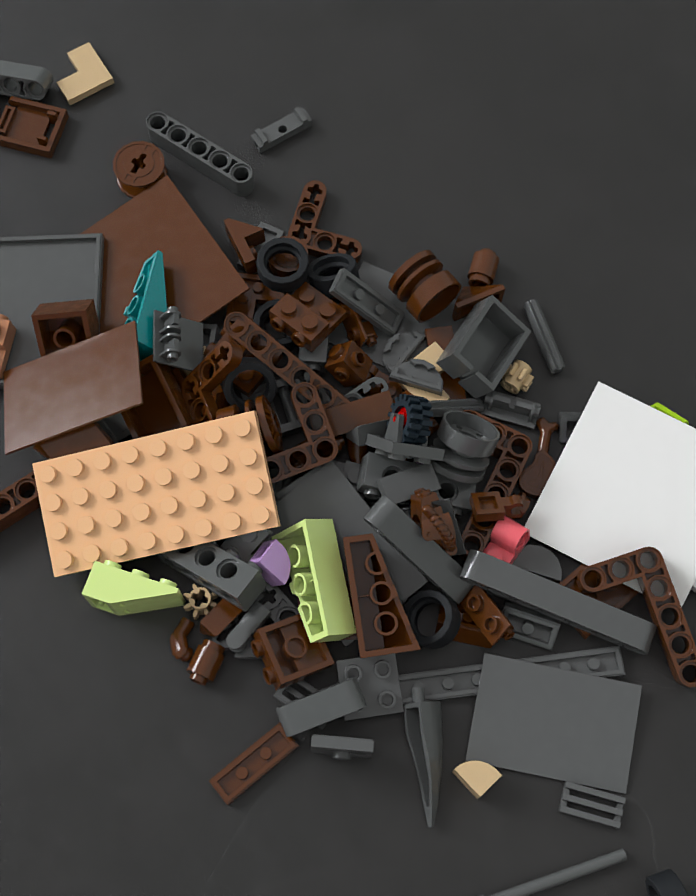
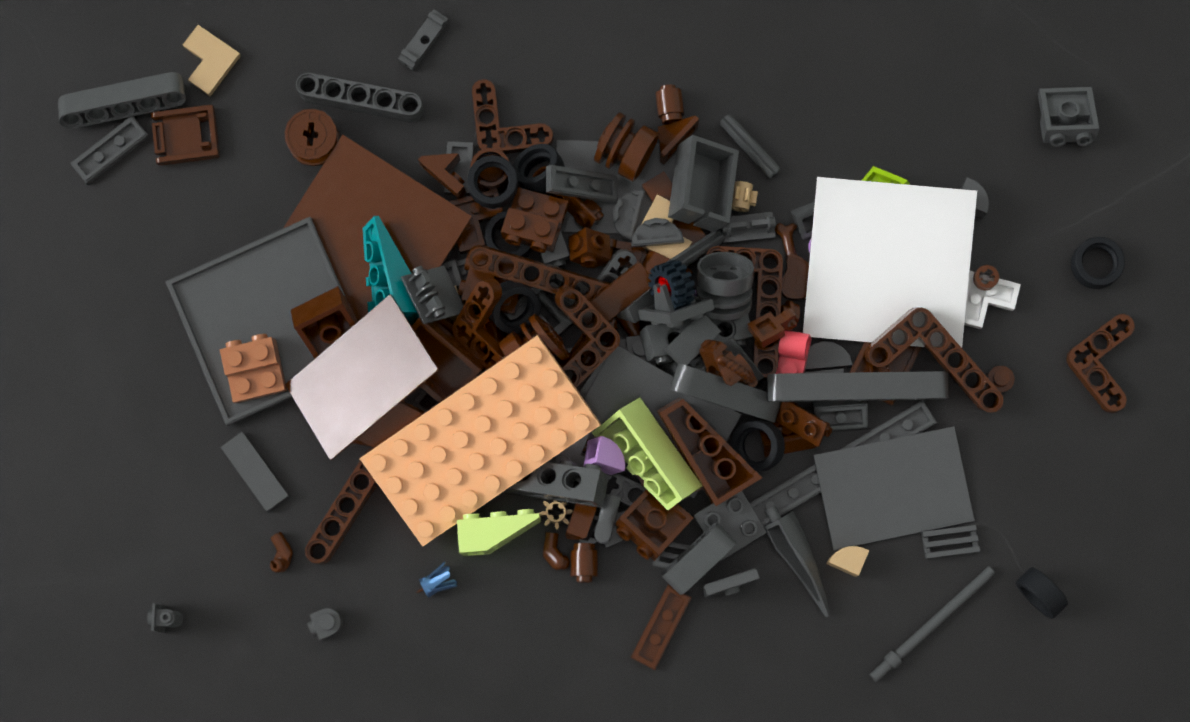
camera: 20 degrees left, 10 degrees up
(44, 617) = (434, 582): none -> flat silver piece

